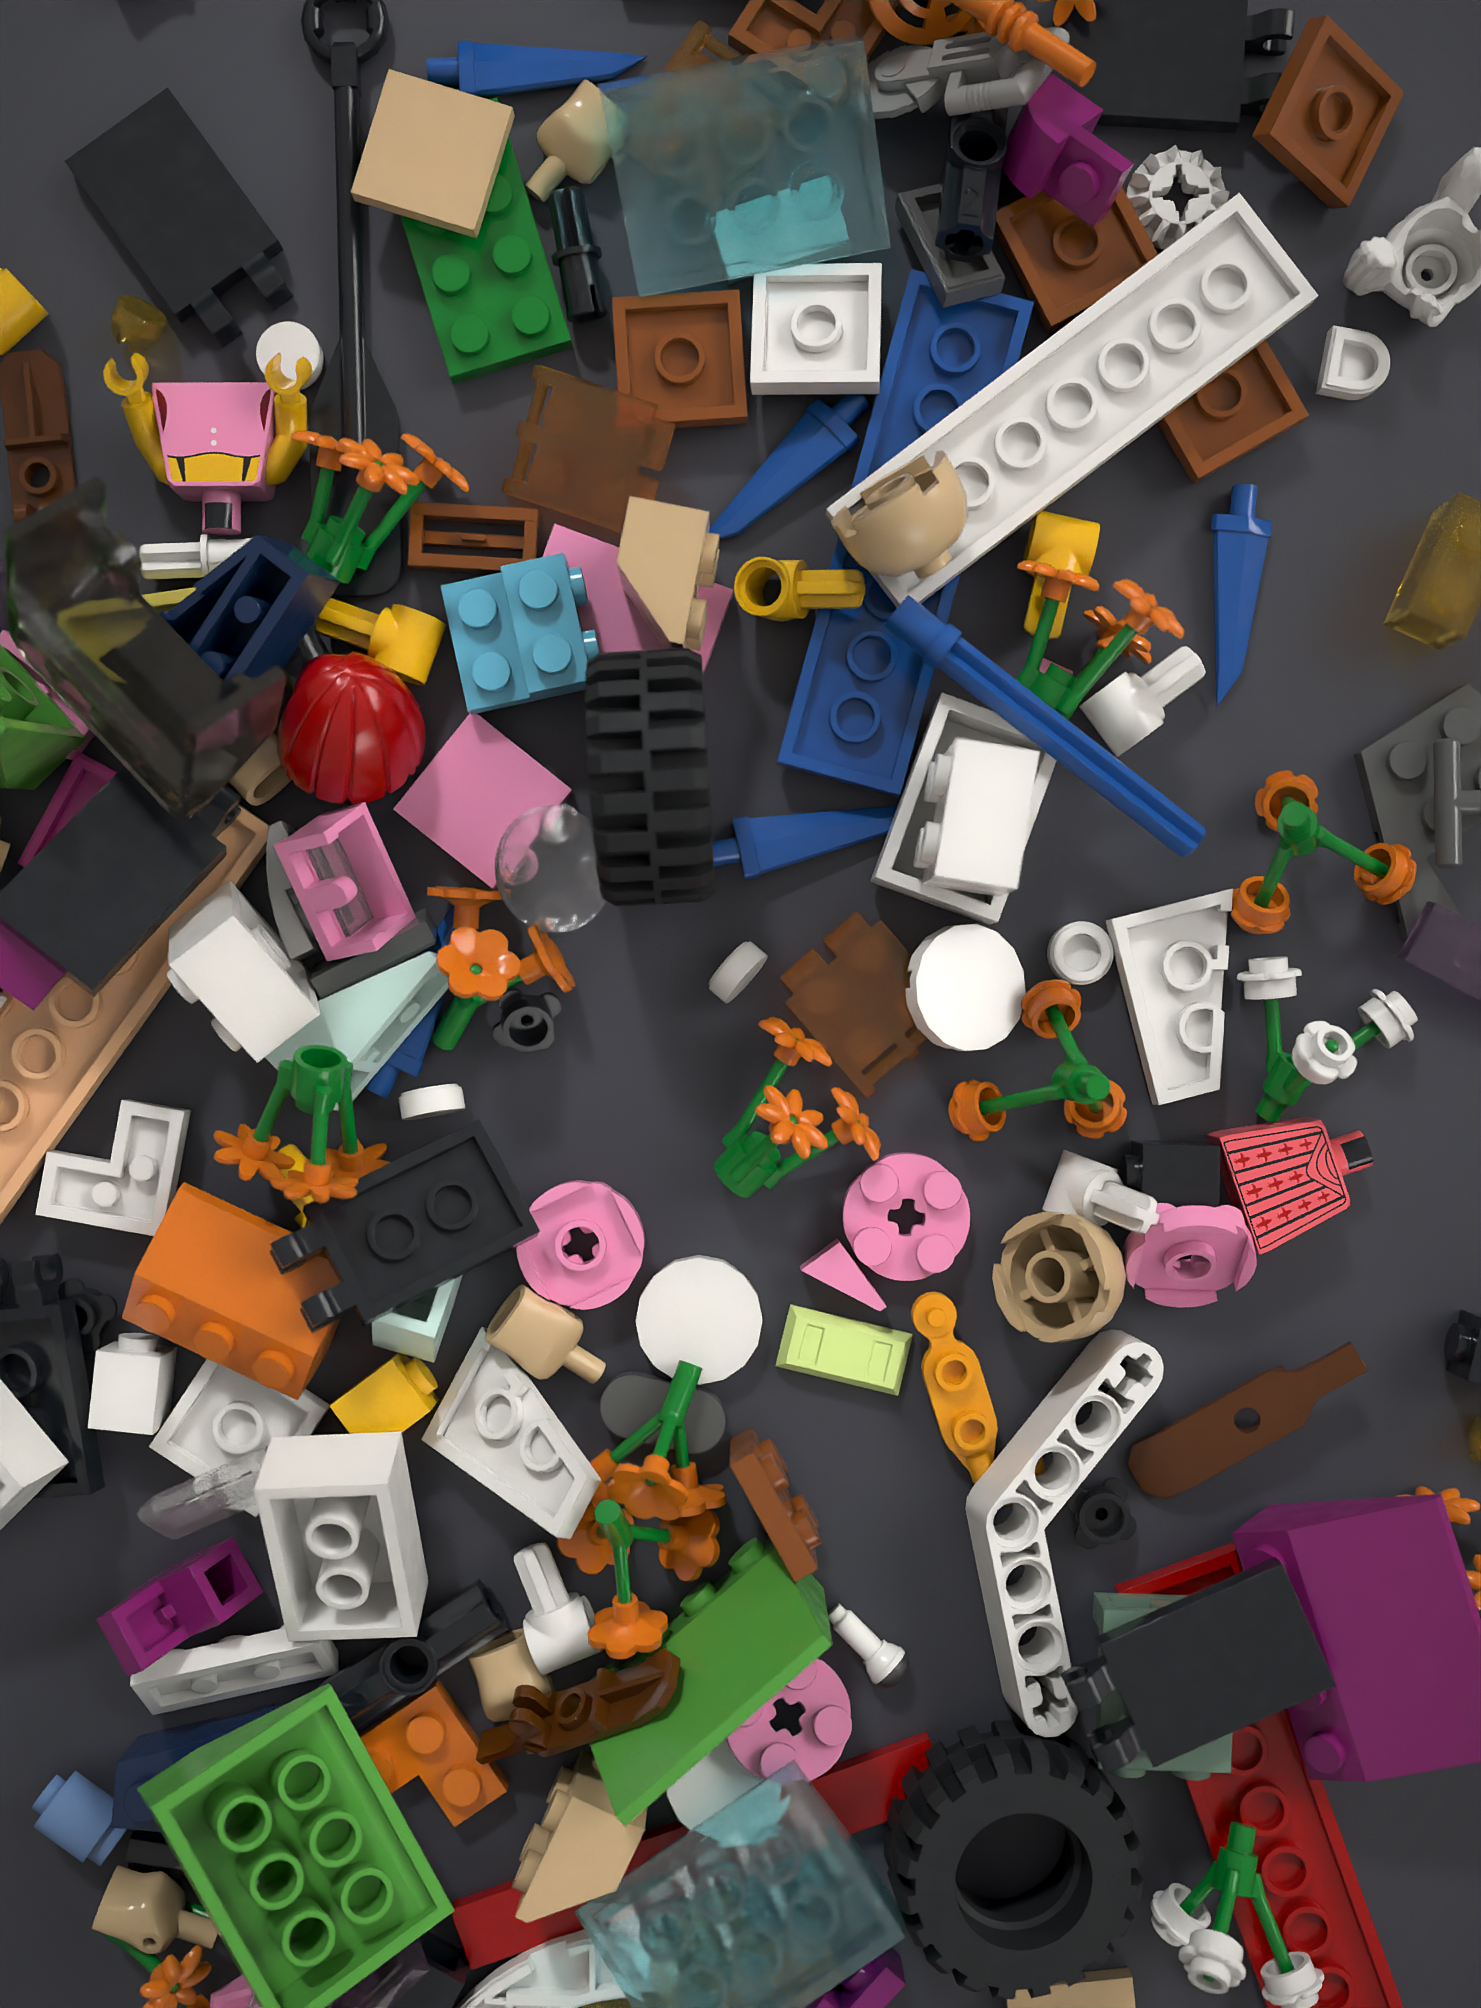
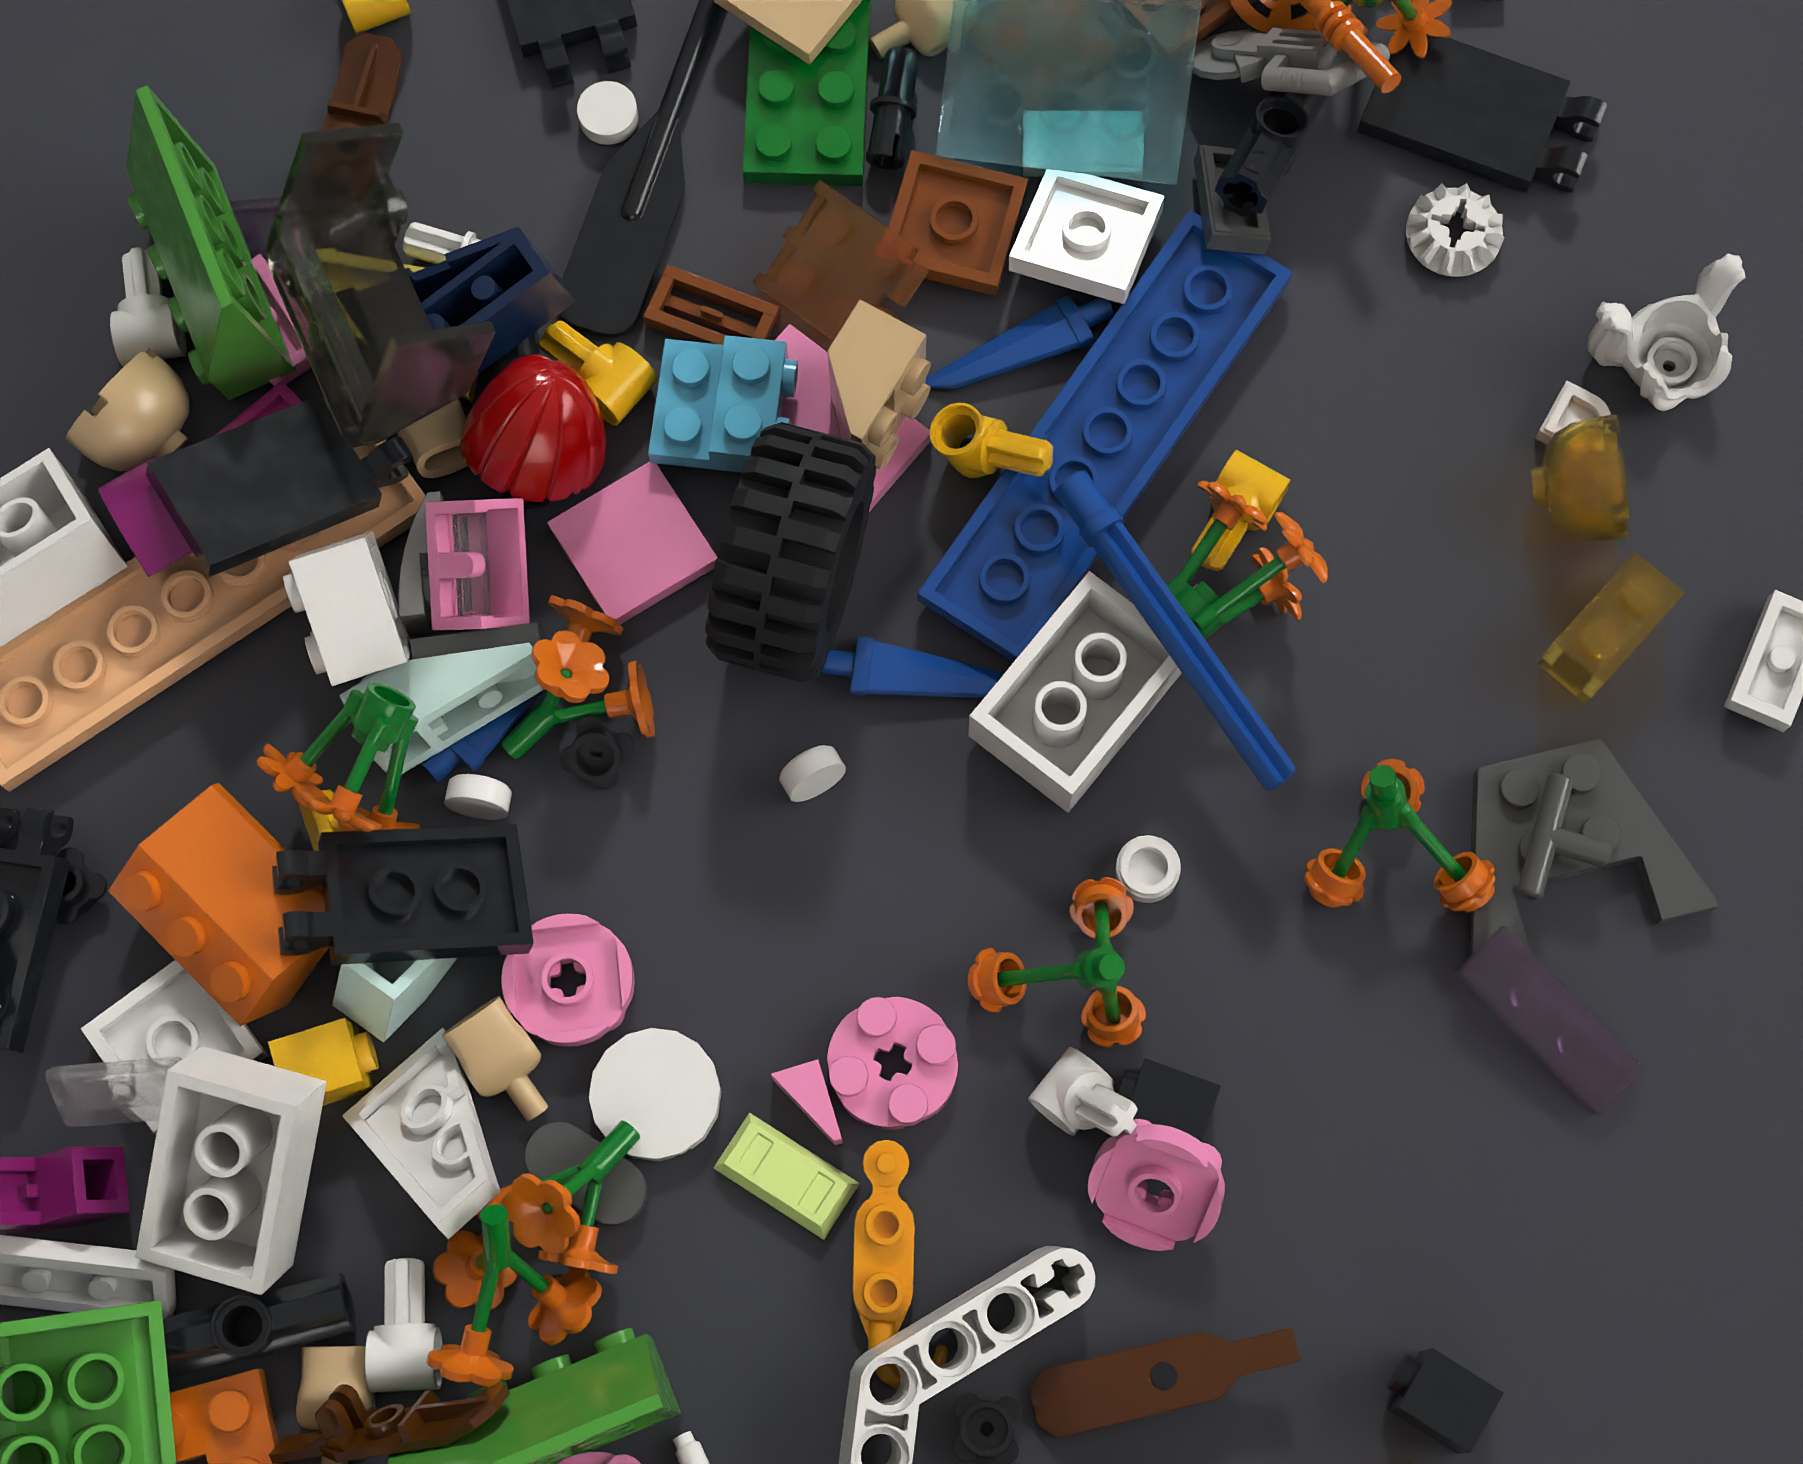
camera: 15 degrees right, 15 degrees down
(130, 1188) = (165, 779): white plate -> none
(132, 1385) = (90, 963): white brick -> none
(137, 322) = (484, 44): clear yellow hinge -> none
(217, 438) = (517, 156): torso -> none
(339, 542) = (588, 273): plant -> none
(549, 869) = (664, 622): clear dish -> none
(754, 1157) = (762, 949): plant -> none
(785, 1518) = (659, 1258): dark orange plate -> none
(857, 999) = (925, 843): clear orange plate -> none
(907, 519) = (1105, 406): tan cylinder -> none
(965, 987) = (1023, 858): white tile -> none
(978, 817) = (1079, 678): white brick -> none
(1058, 154) = (1355, 152): magenta brick -> none
(1059, 1277) = (1021, 1160): tan cylinder -> none
(1065, 259) = (1349, 238): dark orange plate -> none
(1103, 381) = (1295, 364): white plate -> none
(1134, 704) = (1268, 656): white axle -> none
(1173, 989) = (1226, 932): white wing -> none
(1233, 414) = (1440, 406): dark orange plate -> none
(1237, 568) = (1413, 562): blue bar -> none
(1287, 1175) = (1280, 1144): coral torso -> none
(1323, 1049) = (1344, 1021): white plant -> none
(1328, 112) = (1612, 196): dark orange plate -> none
(1385, 428) = (1585, 480): none -> clear yellow cylinder

